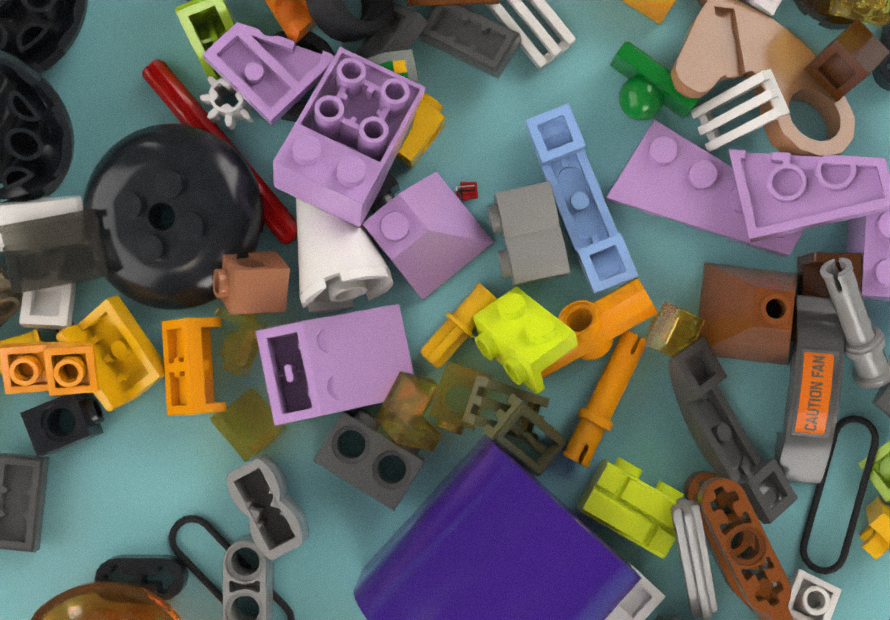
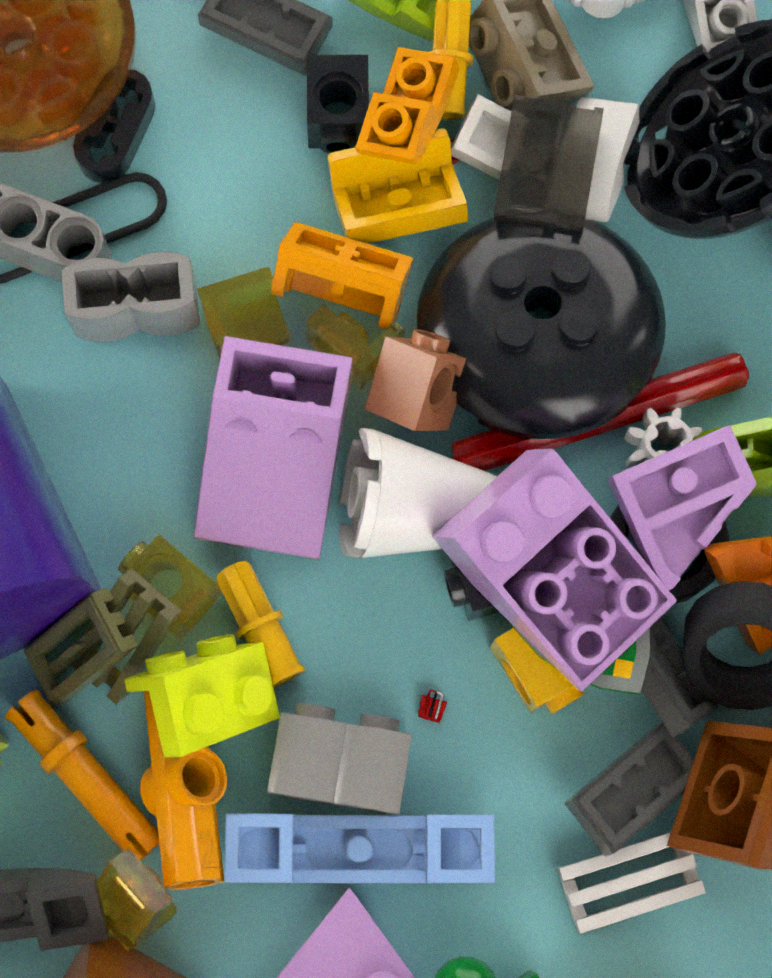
camera: 105 degrees right, 10 degrees down
(364, 469) = (126, 432): dark grey brick -> none
(405, 410) = (175, 507): clear yellow panel -> none
(427, 234) = (394, 629): lavender slope -> none

